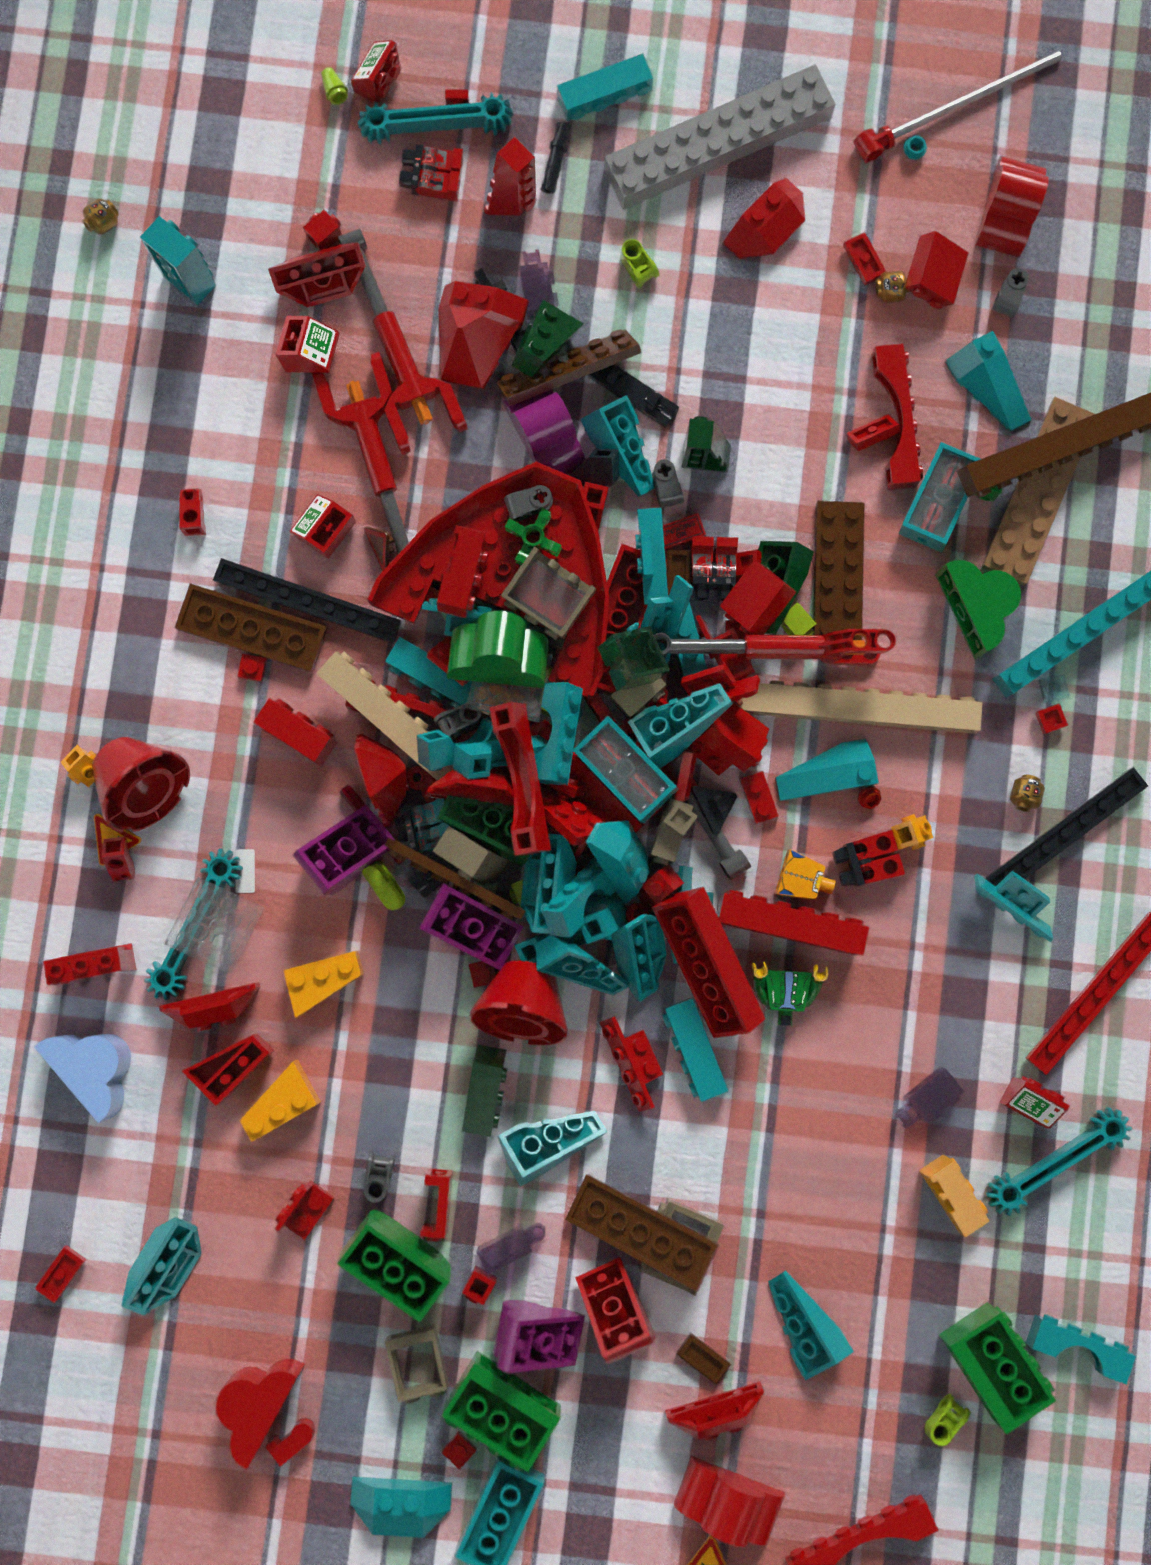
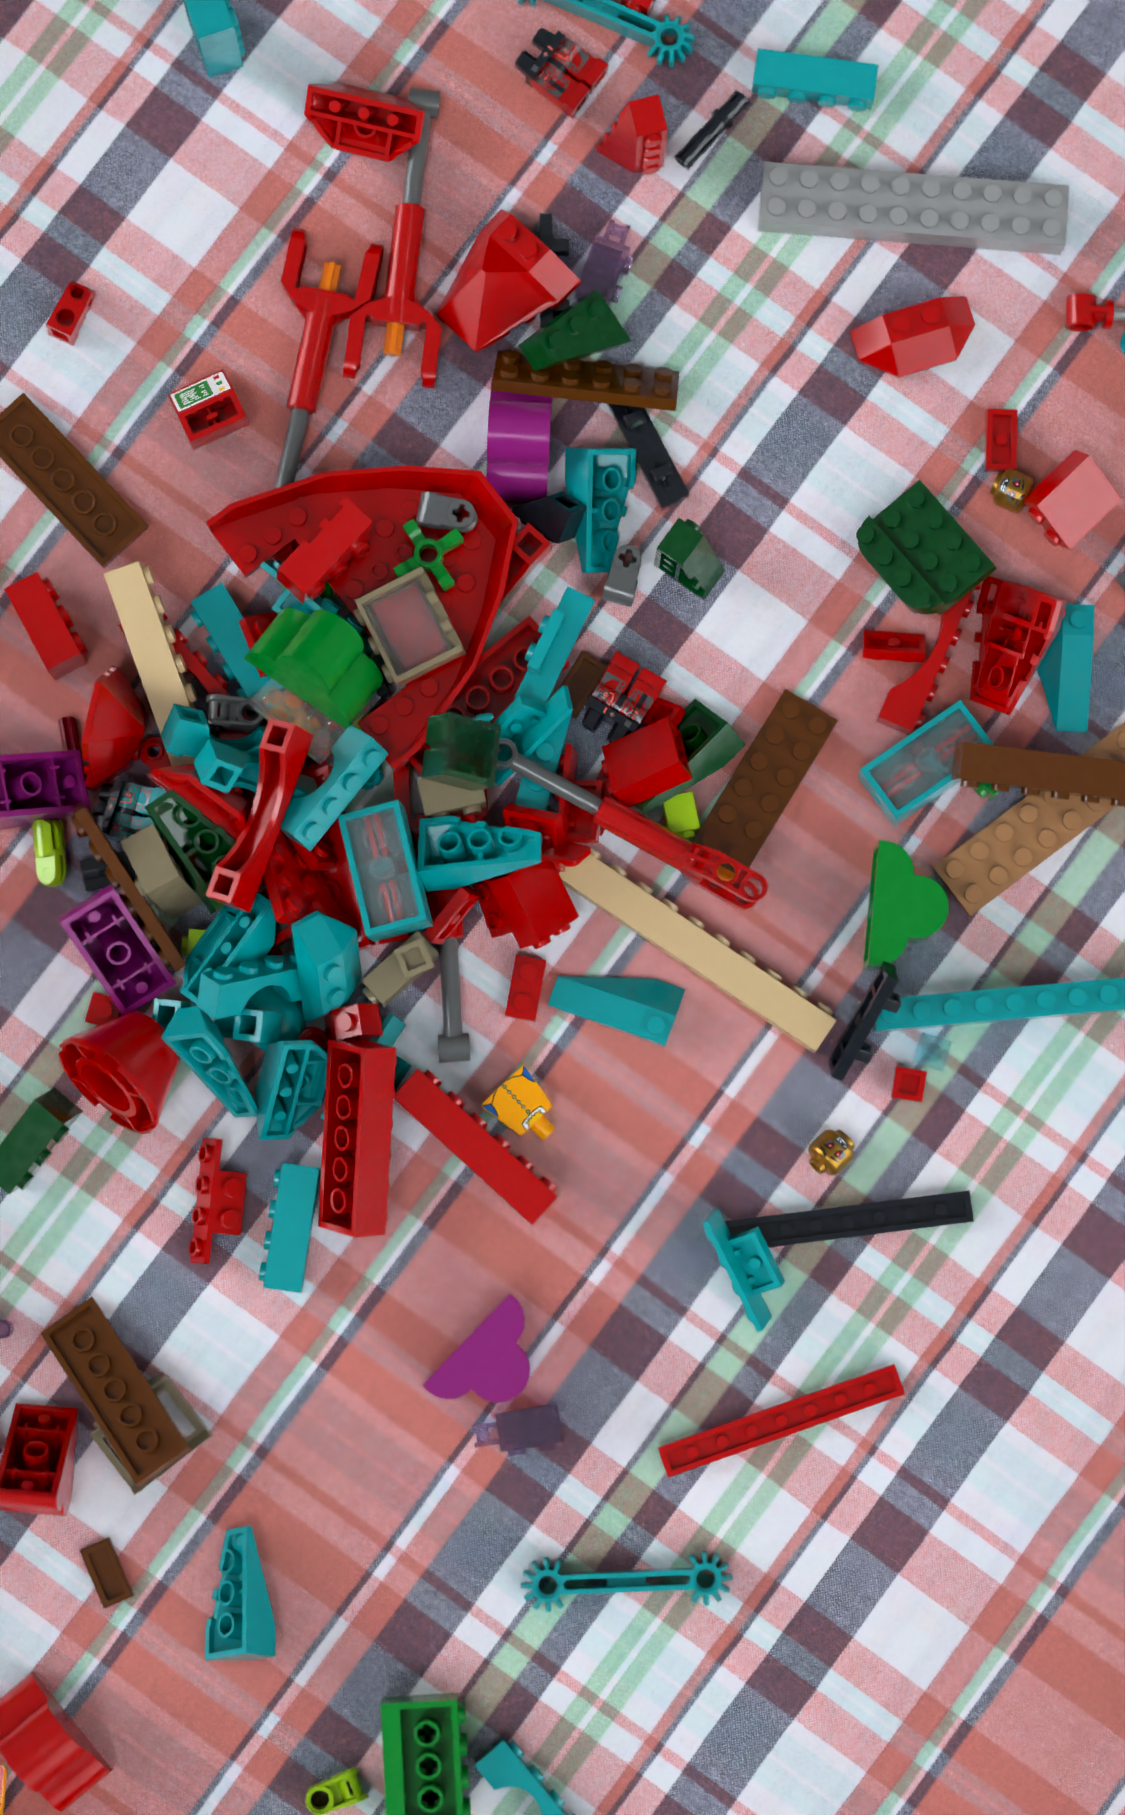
camera: 30 degrees right, 0 degrees up
(252, 668) = (40, 526): red plate -> none
(306, 345) = (304, 194): red slope -> none
(307, 600) = (143, 484): black plate -> none
(322, 230) = (398, 70): red brick -> none
(380, 543) = (261, 466): reddish brown piece -> none
(545, 1144) = (60, 1238): teal wedge -> none
(639, 267) = (736, 309): lime piece -> none
(682, 530) = (608, 638): red tile -> none
(714, 806) = (467, 968): black piece -> none
(717, 1413) = (86, 1639): red wedge -> none
(787, 990) = (430, 1219): green torso -> none
(859, 358) = (923, 552): none -> dark green plate
(861, 860) = (599, 1125): red hips -> none
(869, 797) = (649, 1057): red plate -> none
(881, 1064) = (487, 1360): none -> magenta brick
(912, 832) = (673, 1122): light orange brick -> none
(952, 384) = (1013, 640): none -> red wedge
(955, 1195) = (488, 1552): light orange wedge -> none
(1001, 707) = (852, 1043): none -> black hinge
(1032, 1102) = (633, 1498): slope -> none

